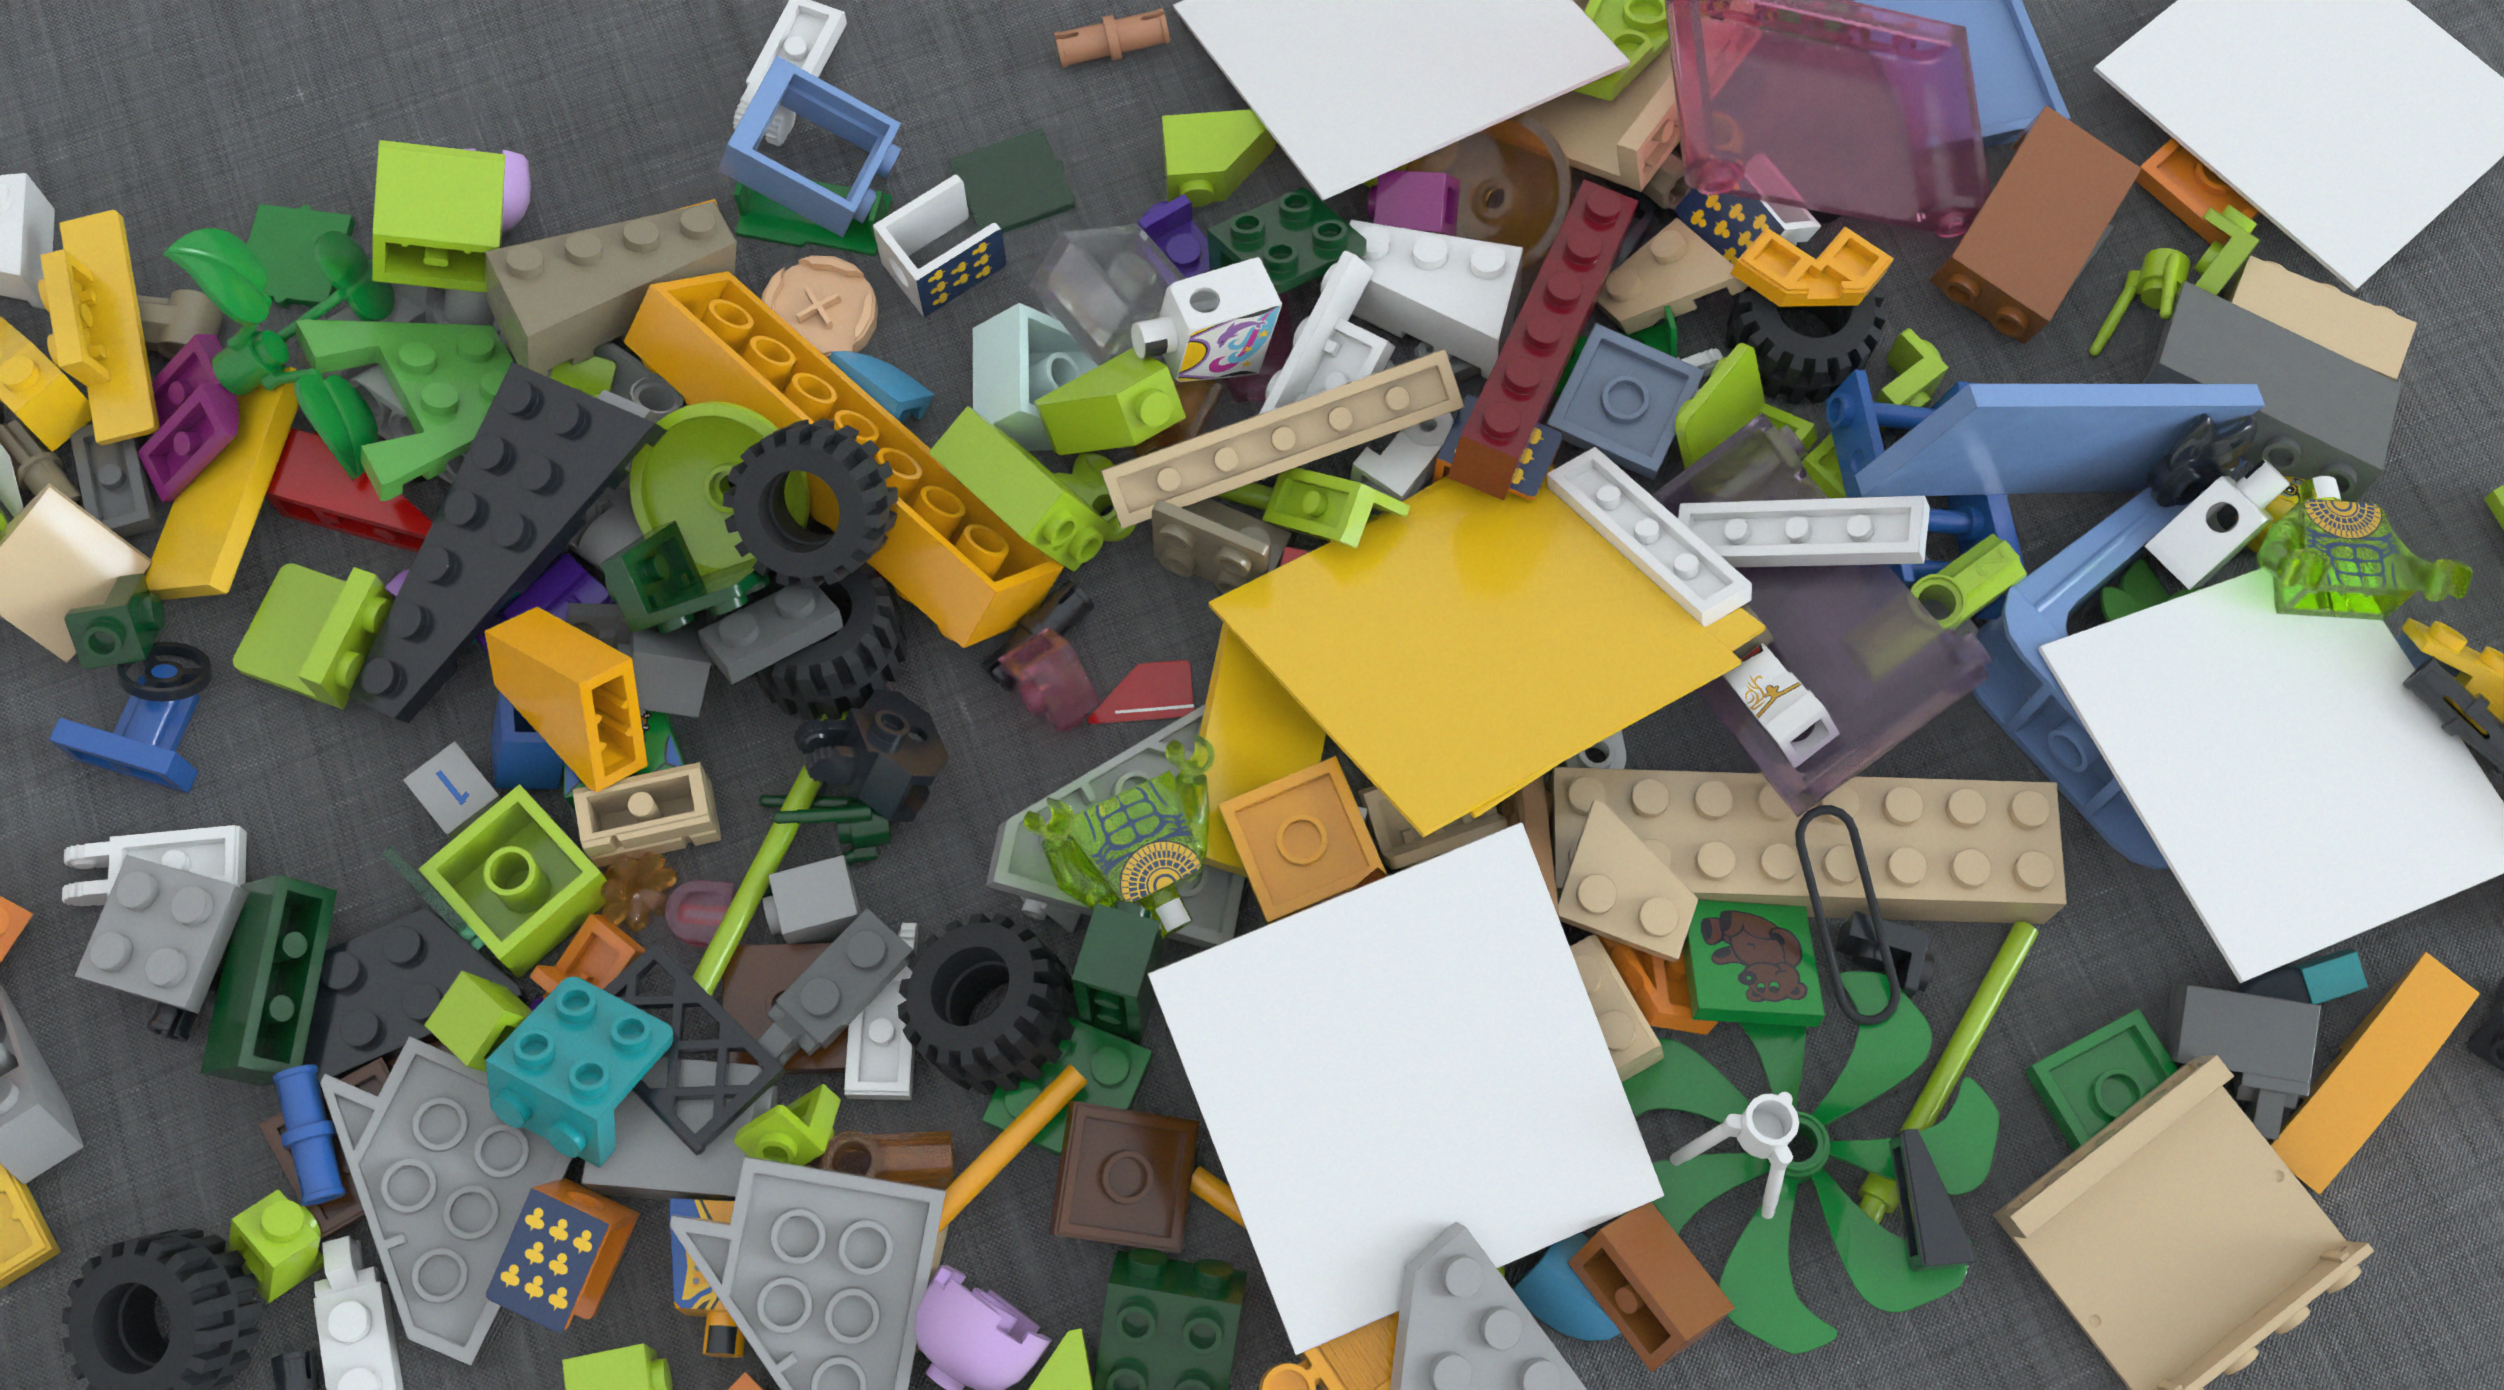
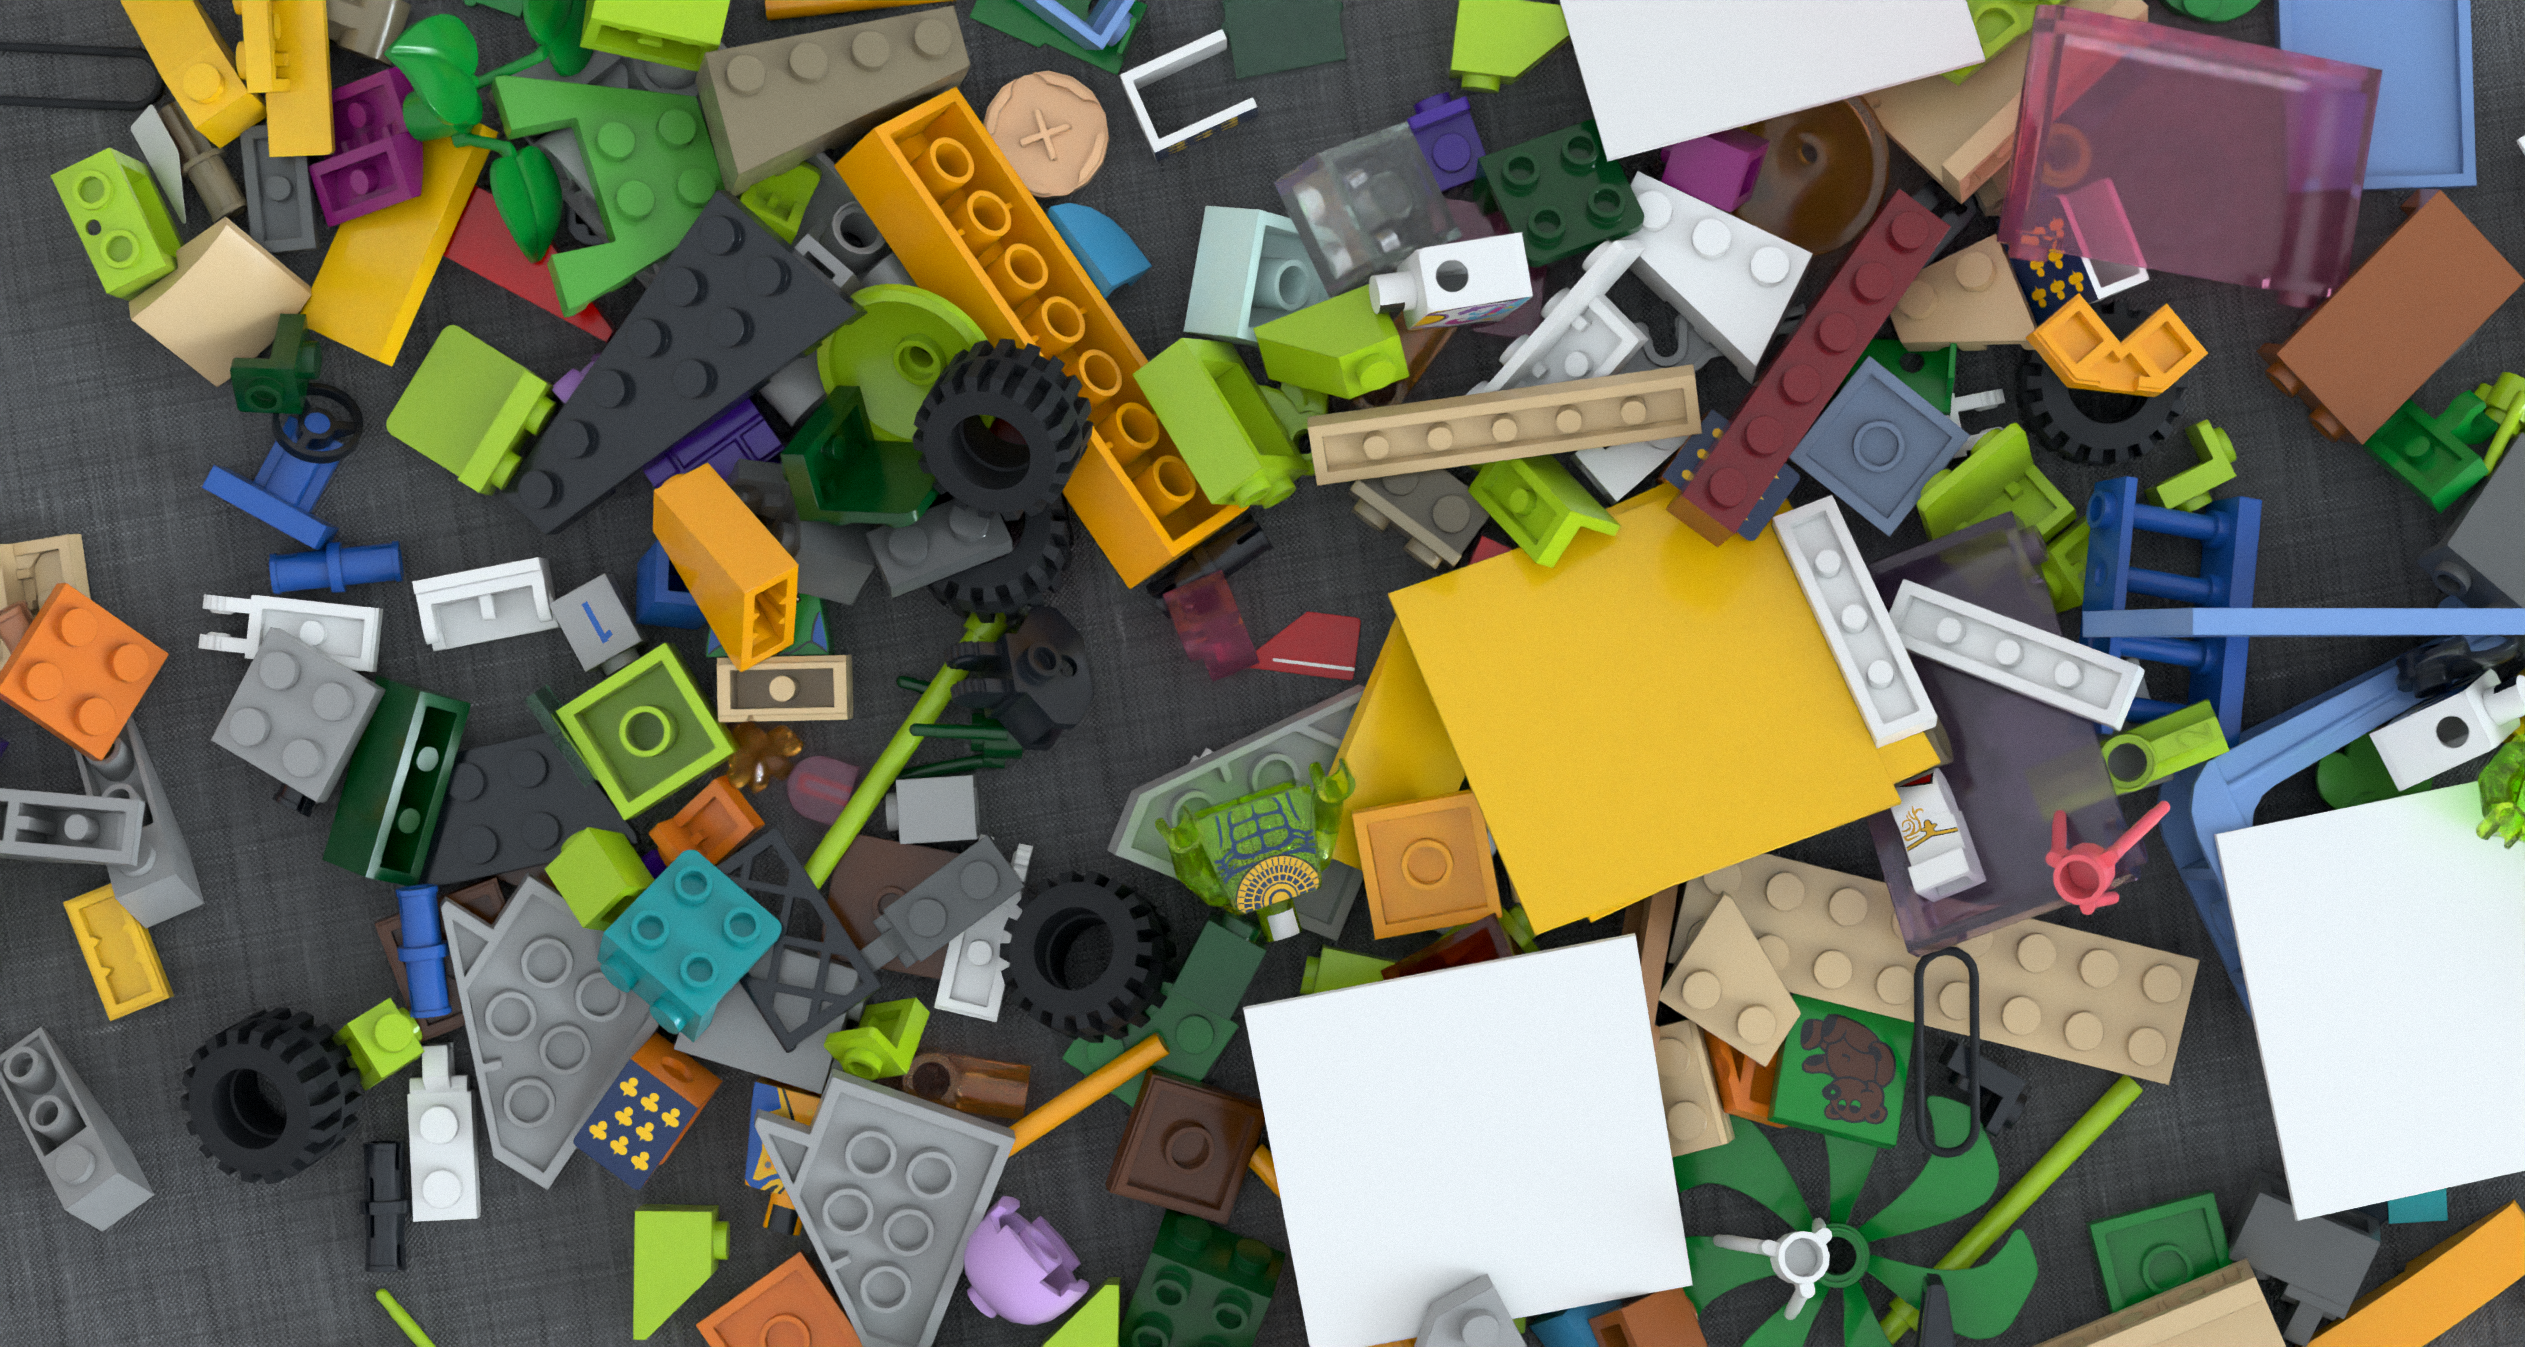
camera: 15 degrees right, 20 degrees up
(194, 799) = (336, 567): none -> blue pin
(345, 802) = (486, 604): none -> white hinge
(1943, 661) = (2089, 869): none -> coral plant
(2108, 320) = (2432, 452): none -> green plate

